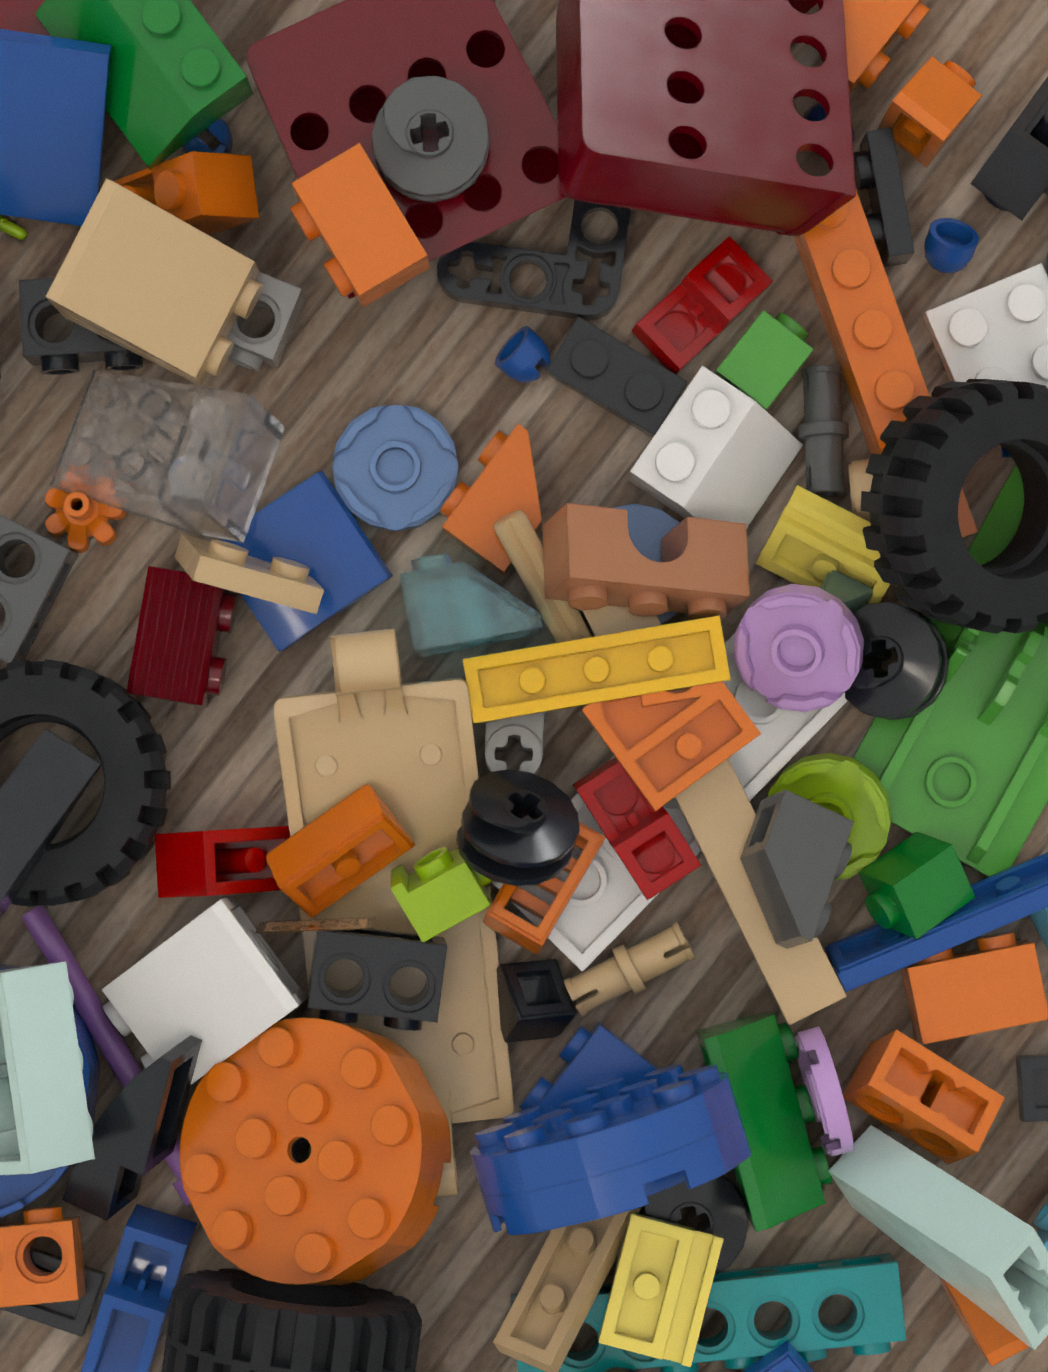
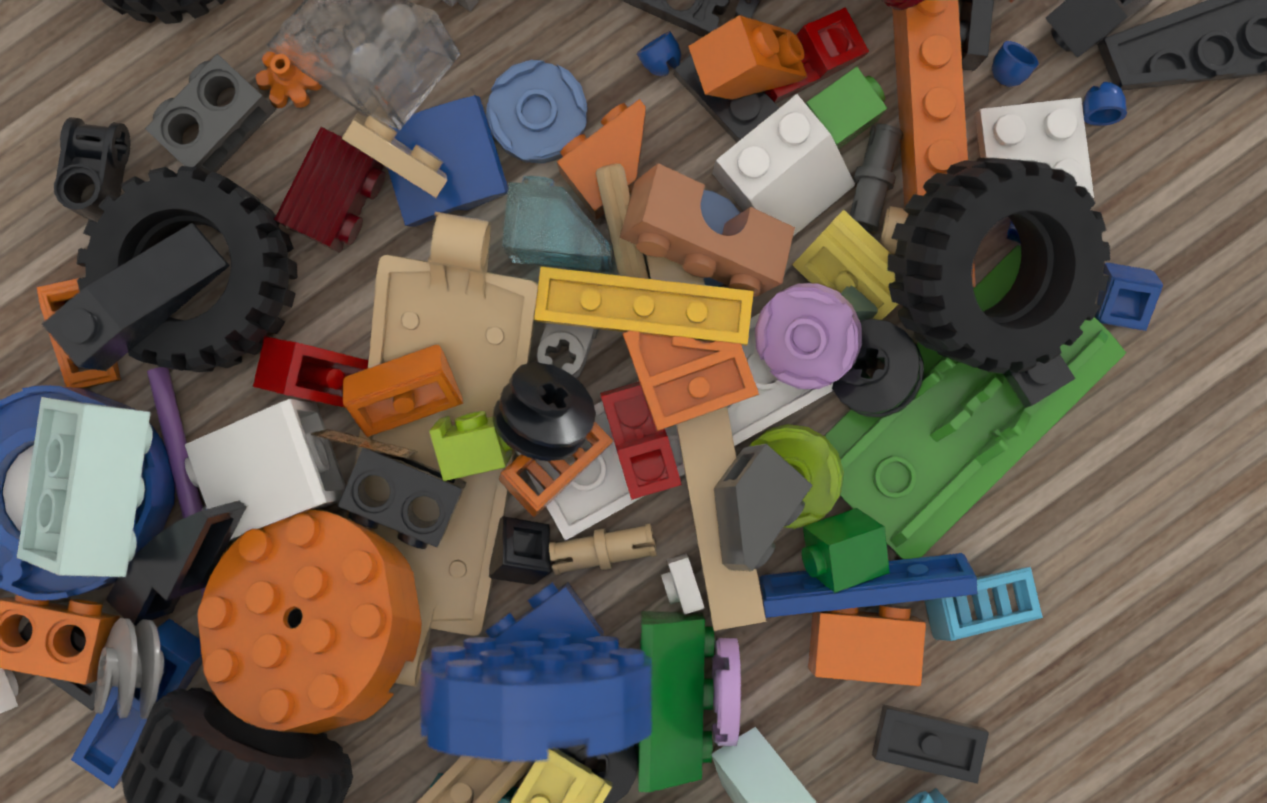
camera: 20 degrees right, 0 degrees up
(125, 1266) = (130, 662): none -> light grey piece
(632, 340) = (747, 58): none -> orange slope
(735, 983) = (681, 584): none -> white plate
(923, 1097) = (803, 718): orange brick -> none

